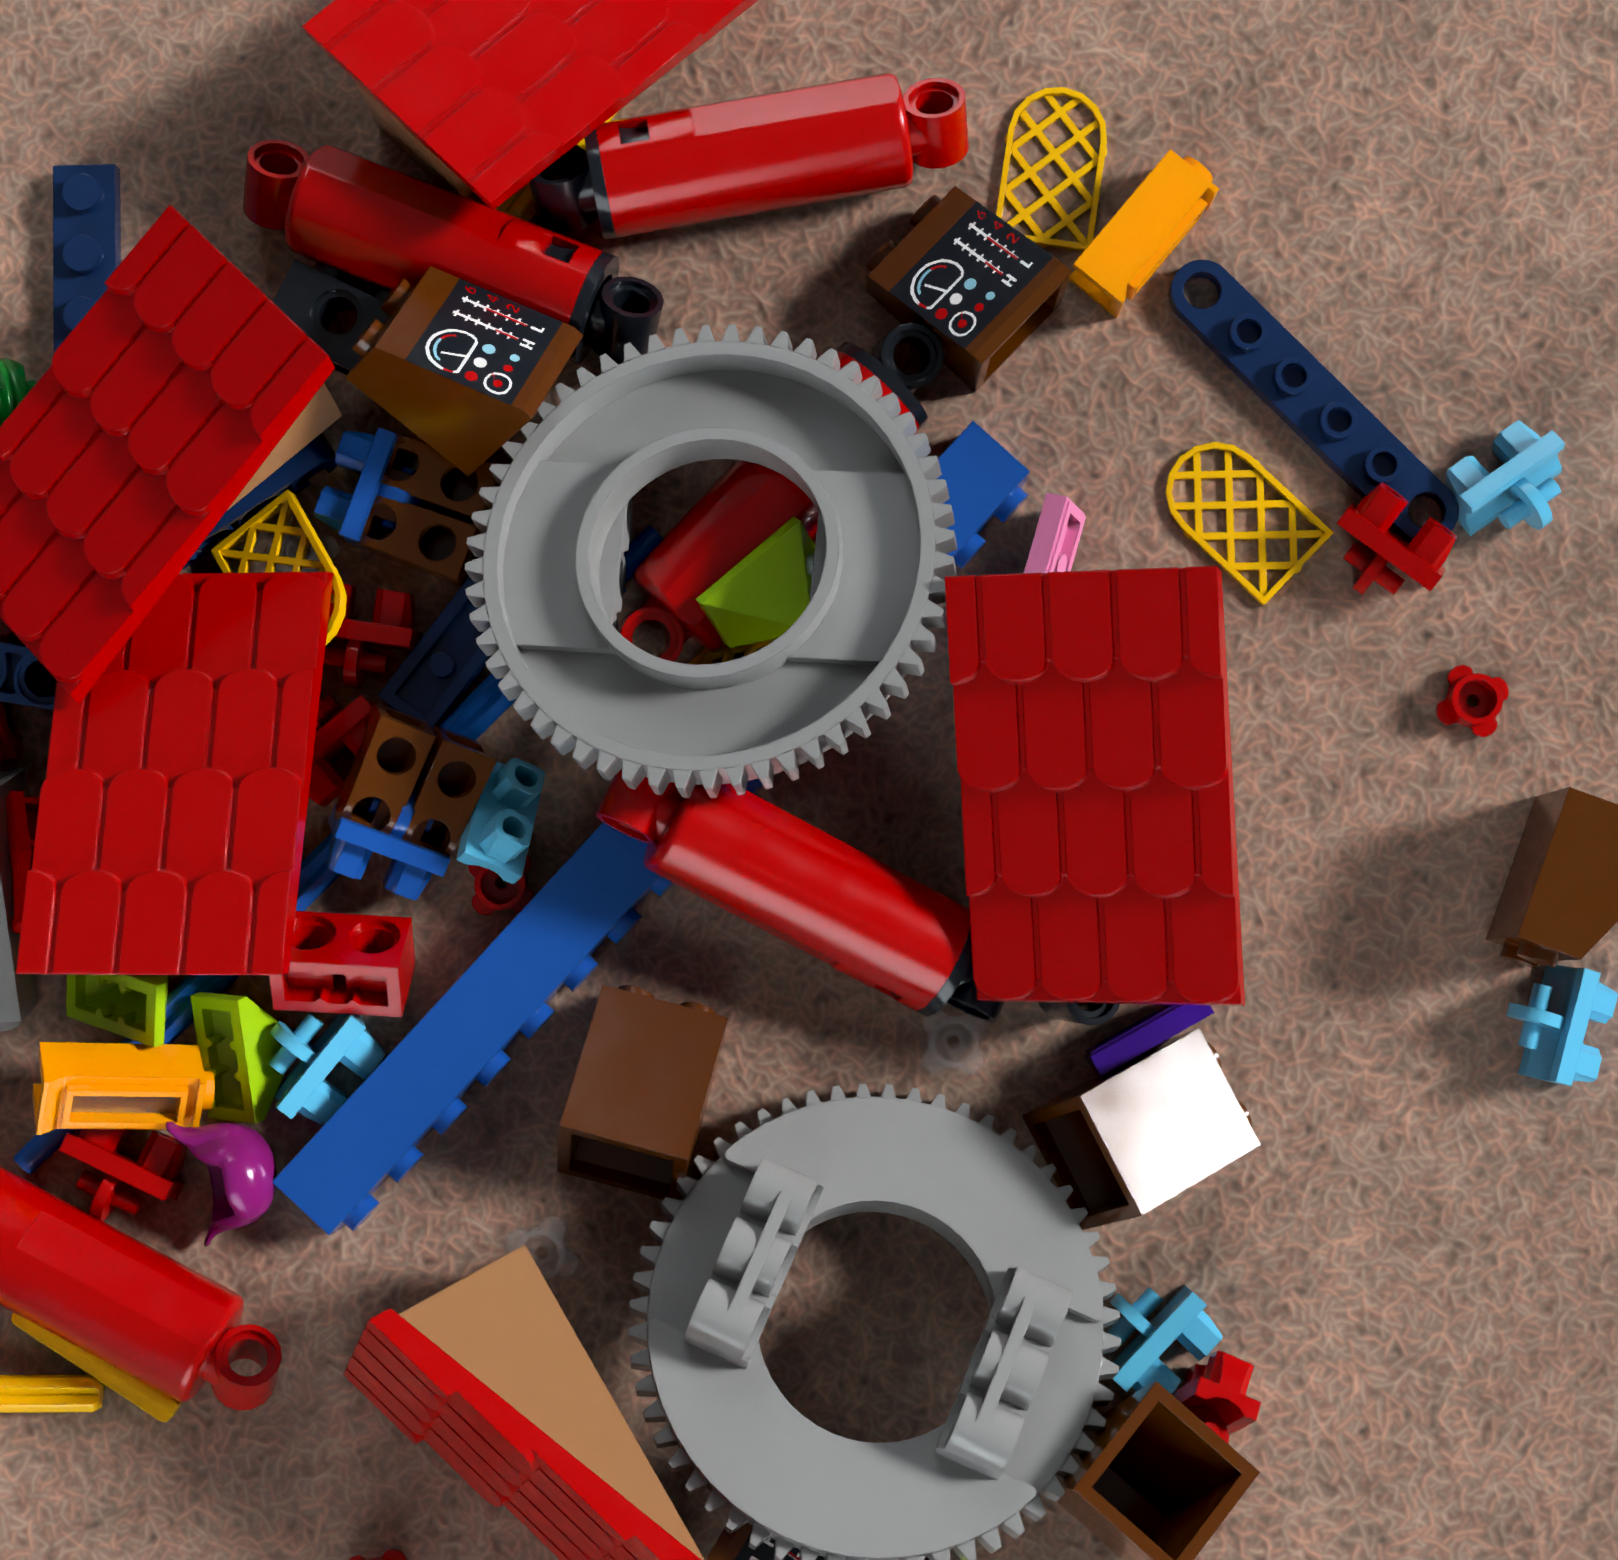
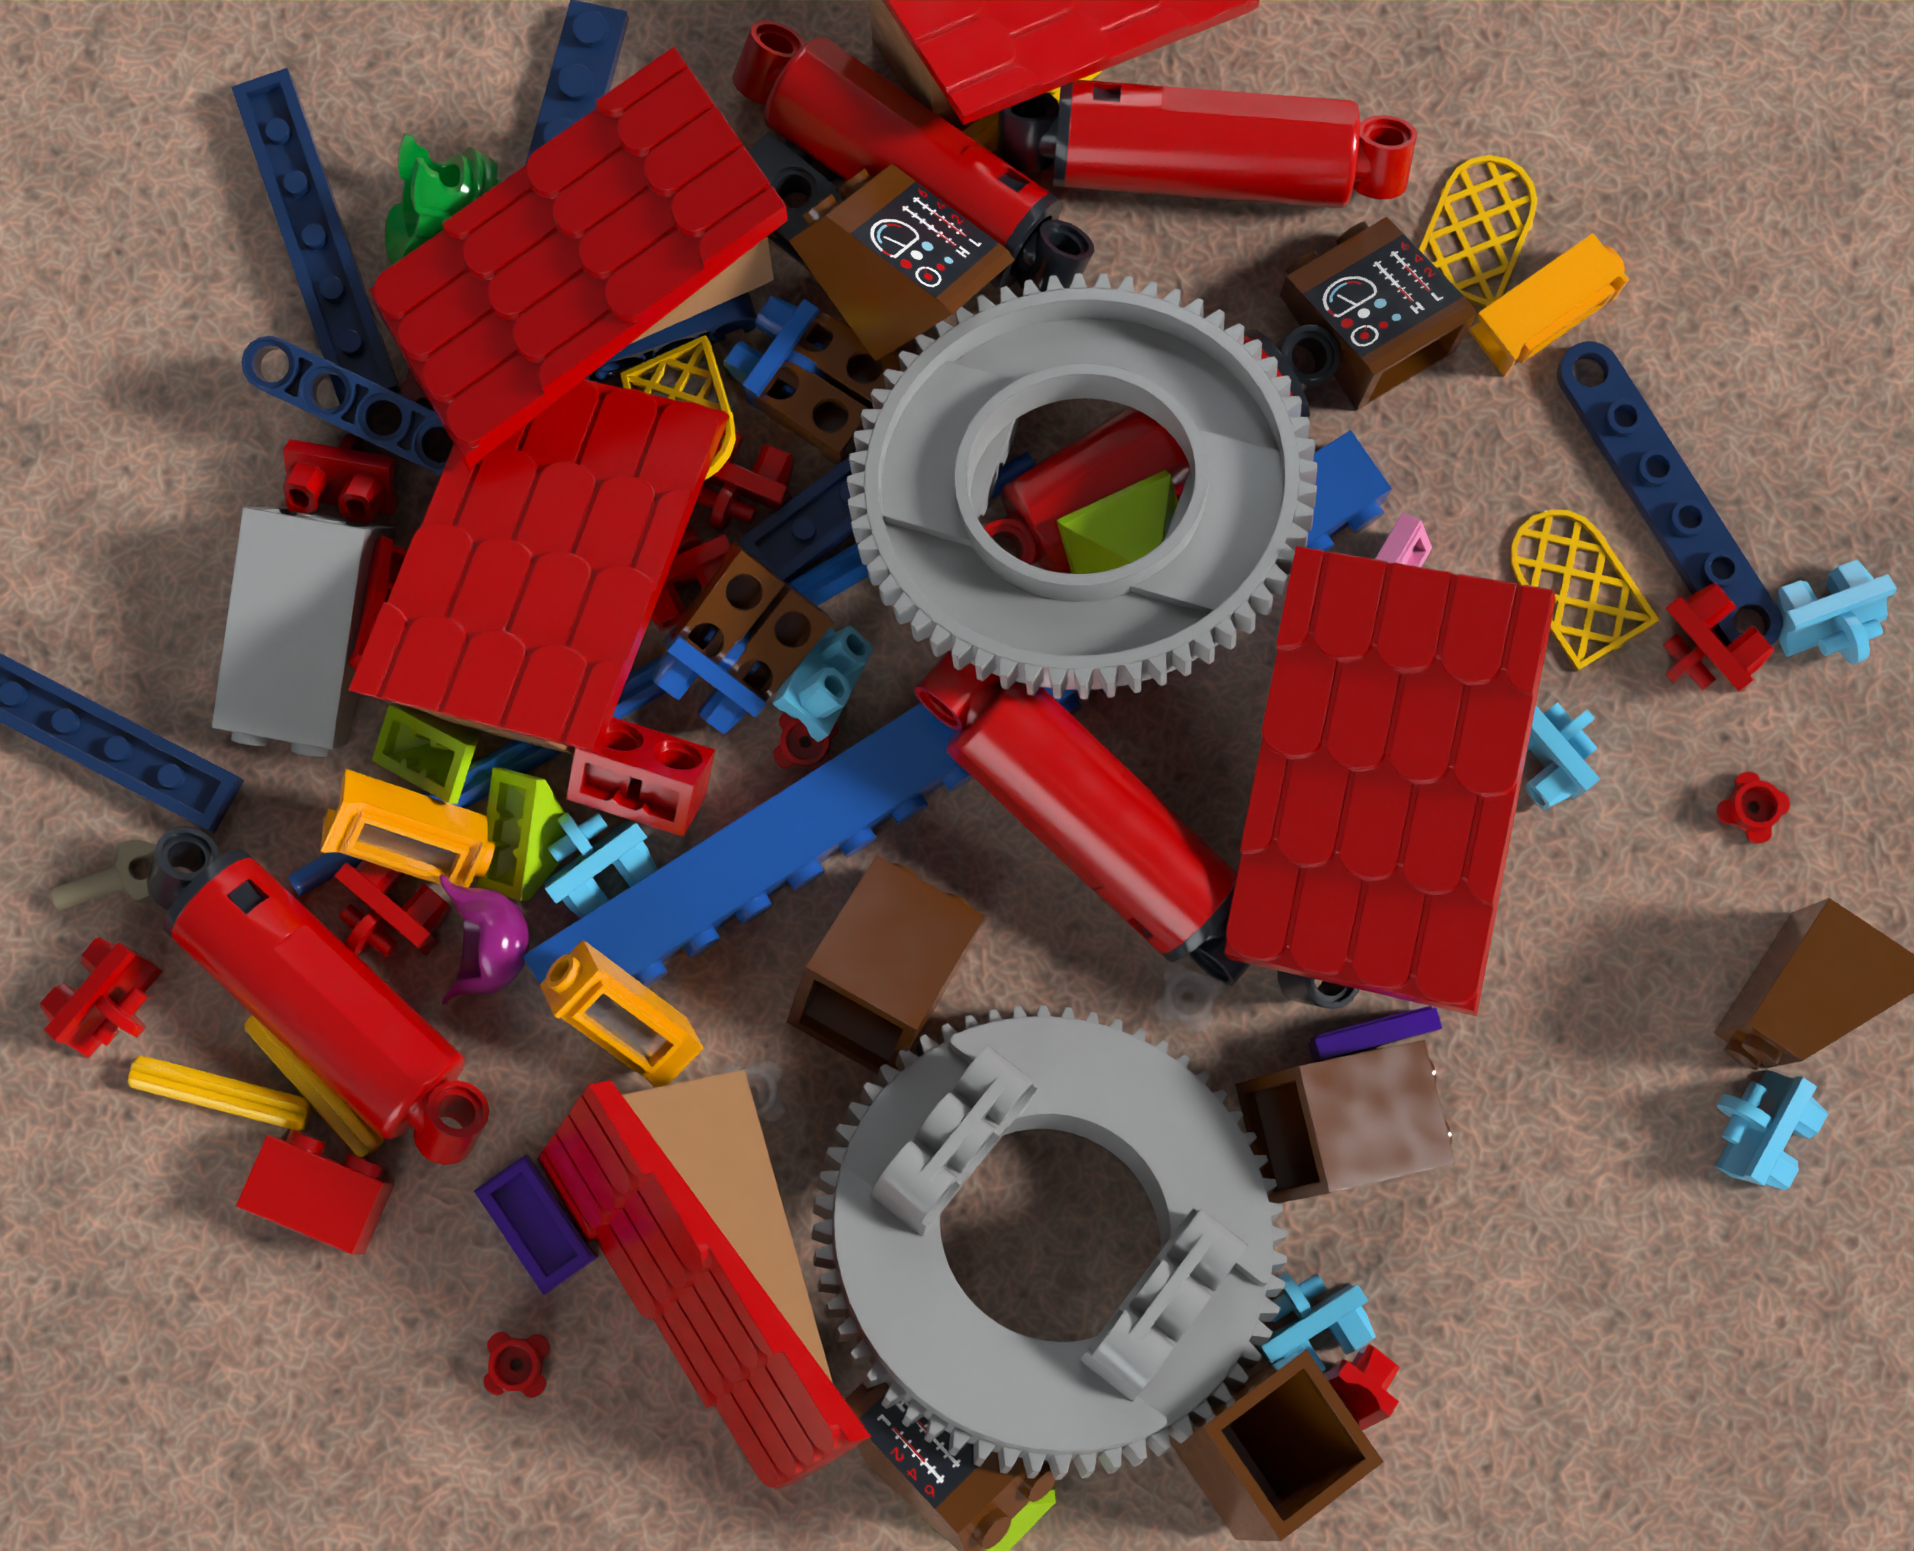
camera: 10 degrees right, 5 degrees down
(130, 1469) = (315, 1192): none -> red brick
(359, 1441) = (535, 1224): none -> dark purple tile
(386, 1216) = (620, 1014): none -> light orange window
(1275, 715) = (1562, 750): none -> medium azure hips

